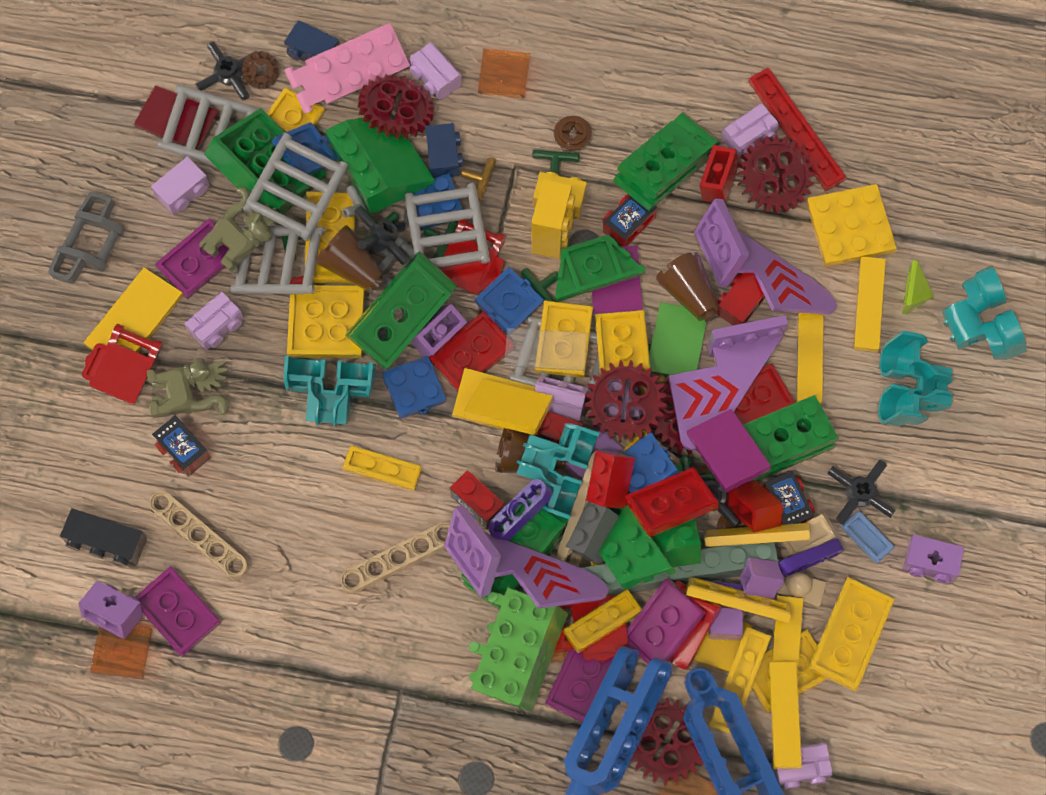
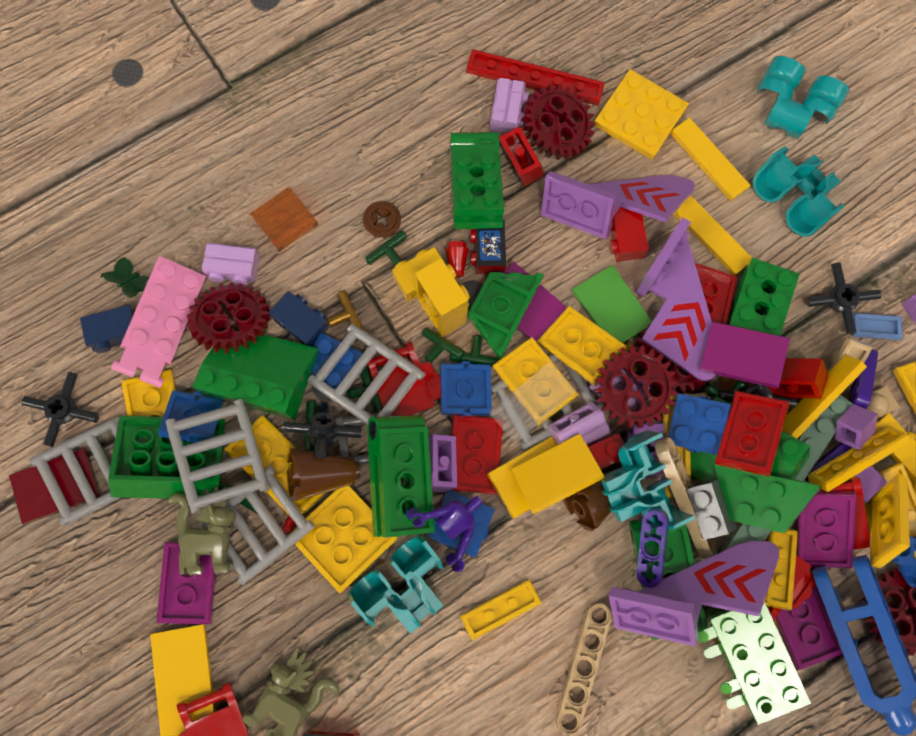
camera: 50 degrees left, 5 degrees up
(83, 217) = (55, 643): dark grey bar -> none
(180, 186) = (114, 539): lavender brick -> none
(214, 321) = (254, 623): lavender brick -> none
(249, 70) = (79, 393): reddish brown gear -> none
(353, 20) = (122, 276): none -> dark green piece
(357, 201) = (273, 420): light grey piece -> none
(406, 374) = (453, 519): none -> dark purple piece
(476, 498) = (598, 565): red brick -> none
(523, 255) = (440, 345): none -> dark green piece
(598, 206) = (457, 256): none -> red cone
(610, 479) = (689, 458): red brick -> none
(690, 286) = (588, 258): reddish brown cone -> none
(709, 653) = (889, 521): none -> yellow tile
(789, 492) = (808, 346): brick -> none
(917, 289) = (728, 121): lime slope -> none

